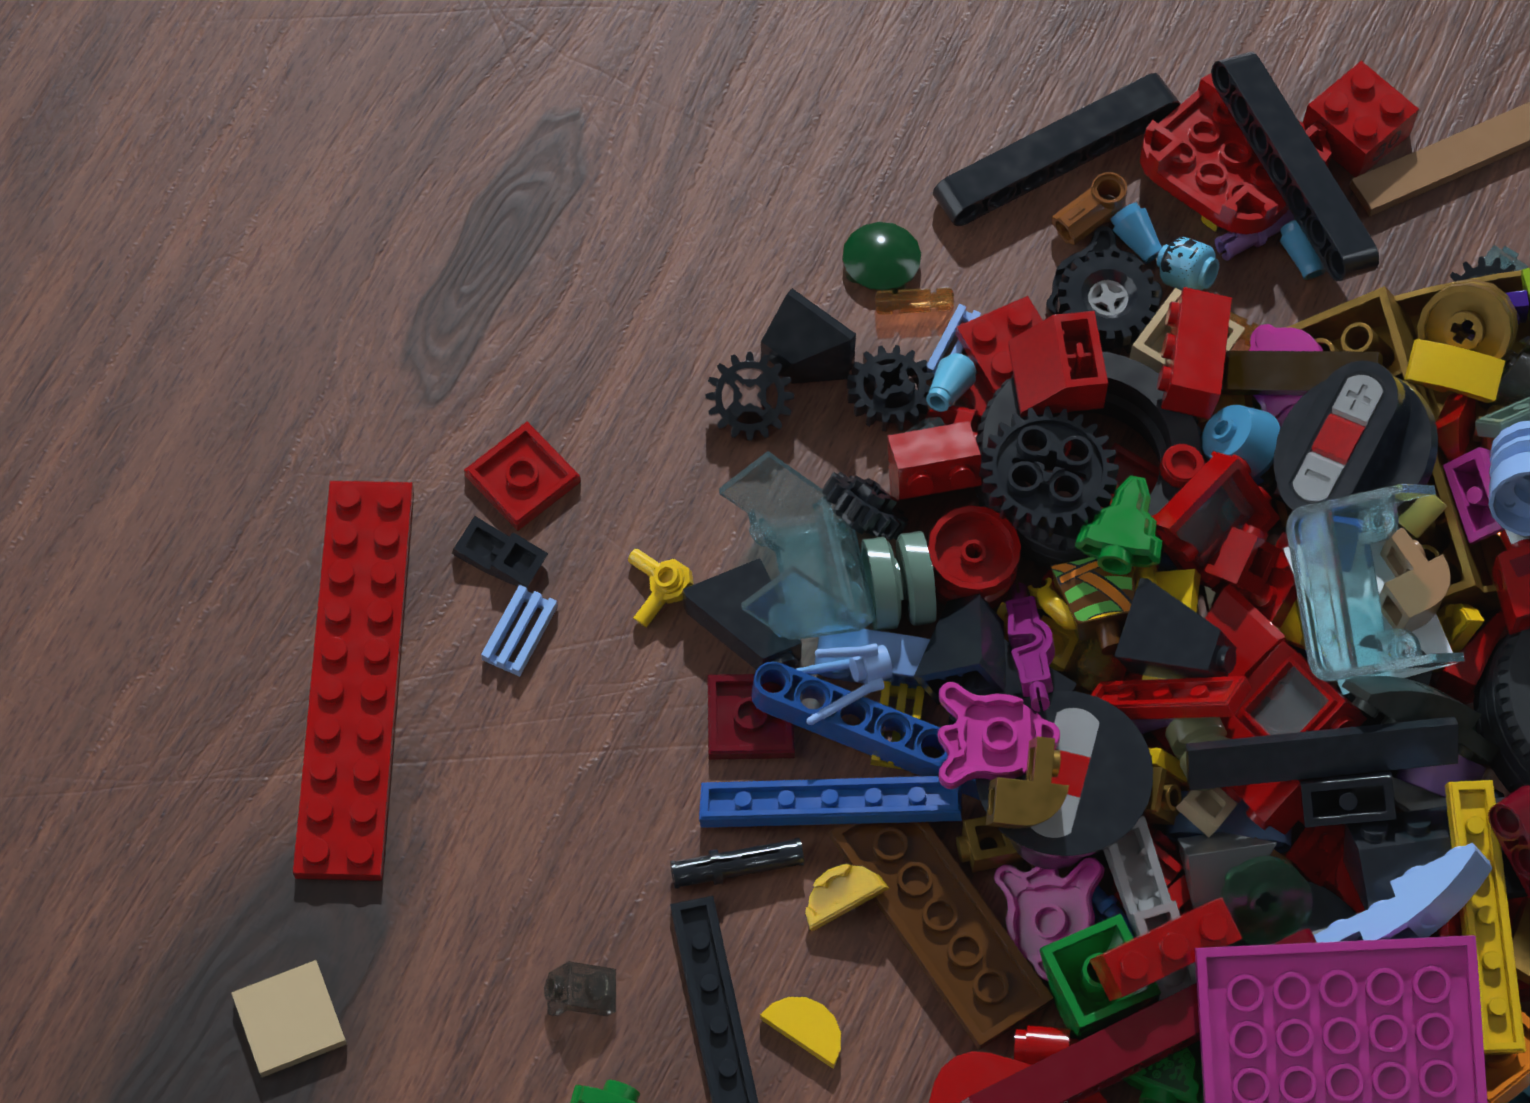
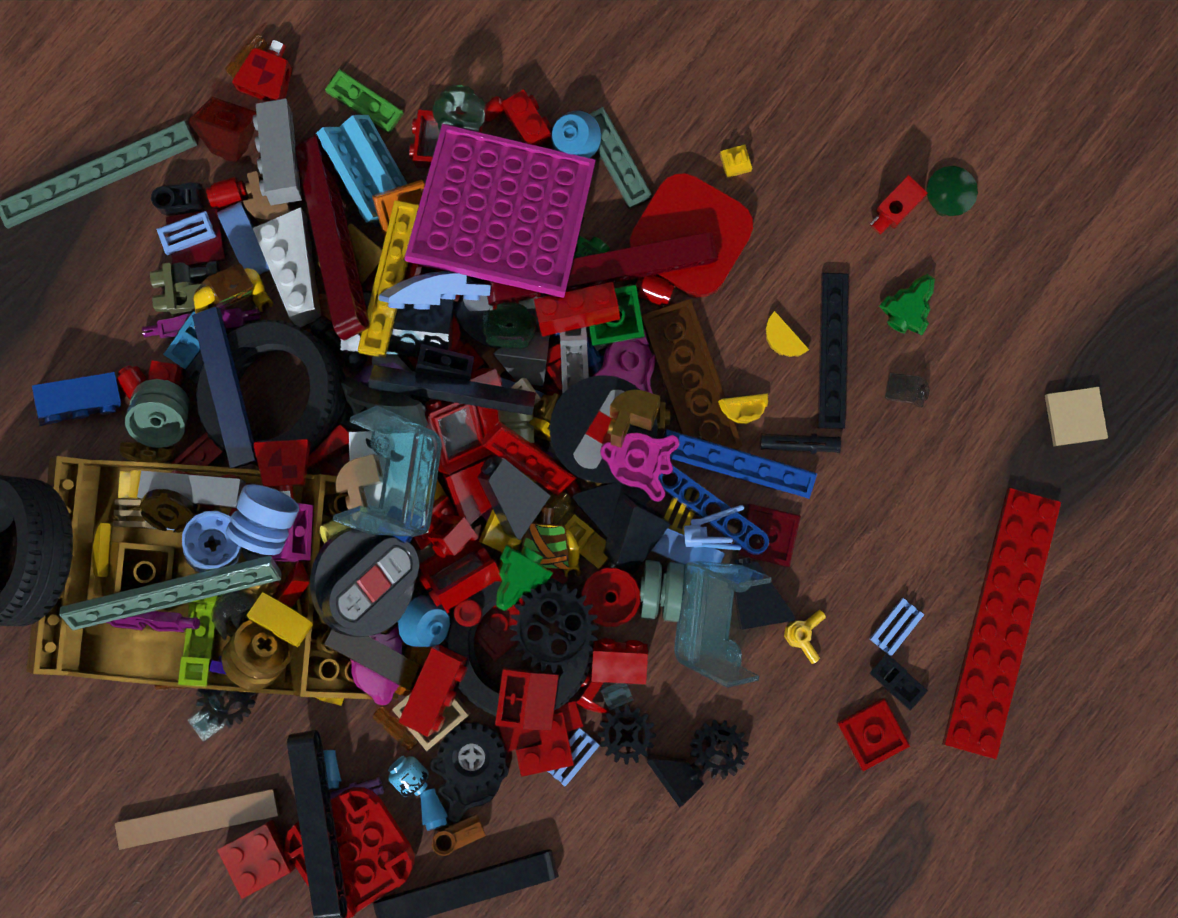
camera: 165 degrees left, 20 degrees up
(865, 505) = (668, 648): black gear -> none
(881, 257) = (604, 837): dark green dish -> none
(914, 300) = (592, 798): clear orange axle -> none
(952, 379) = (590, 723): medium azure cone -> none
(1032, 646) = (598, 510): magenta piece -> none
(1459, 625) = (335, 461): yellow tile -> none

